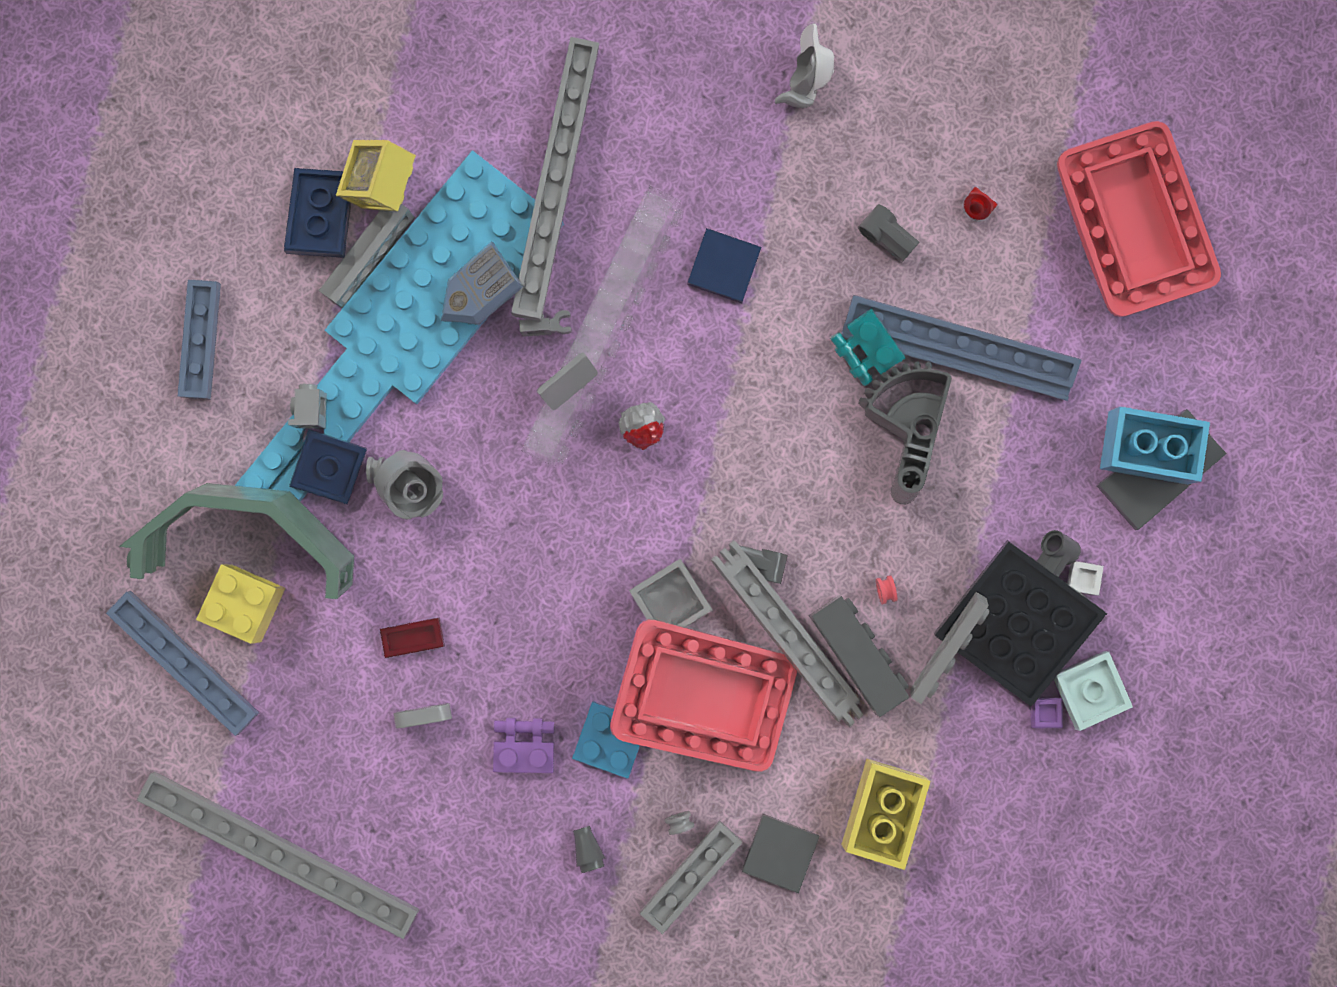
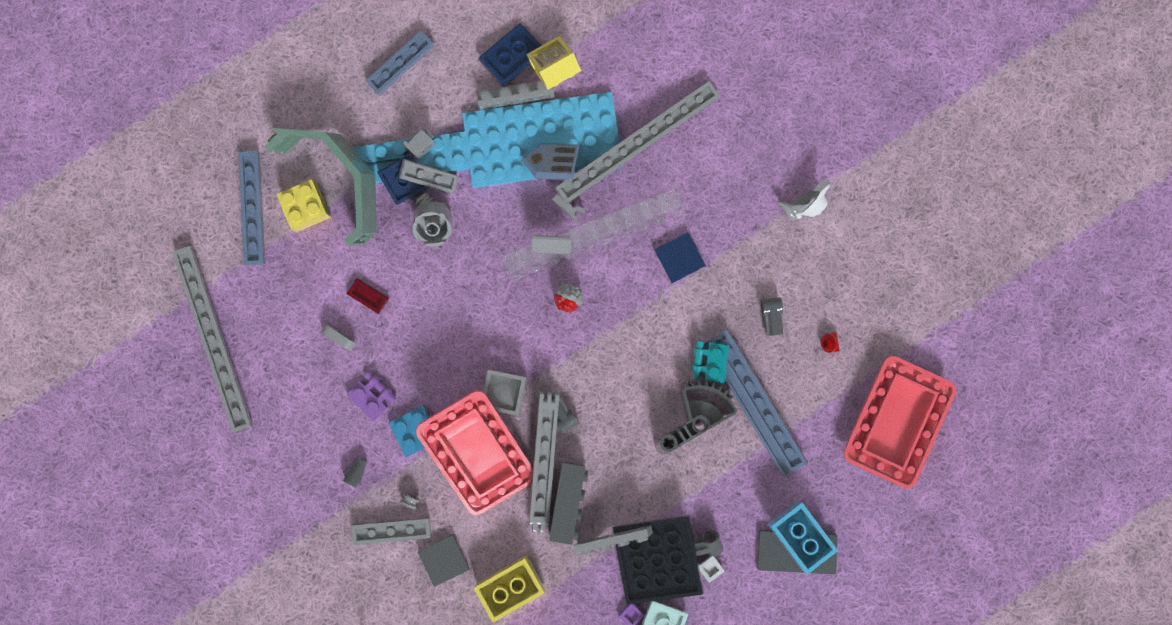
camera: 50 degrees right, 0 degrees up
(353, 437) = (428, 176): none -> light grey tile
(886, 589) = (610, 484): coral bush -> none

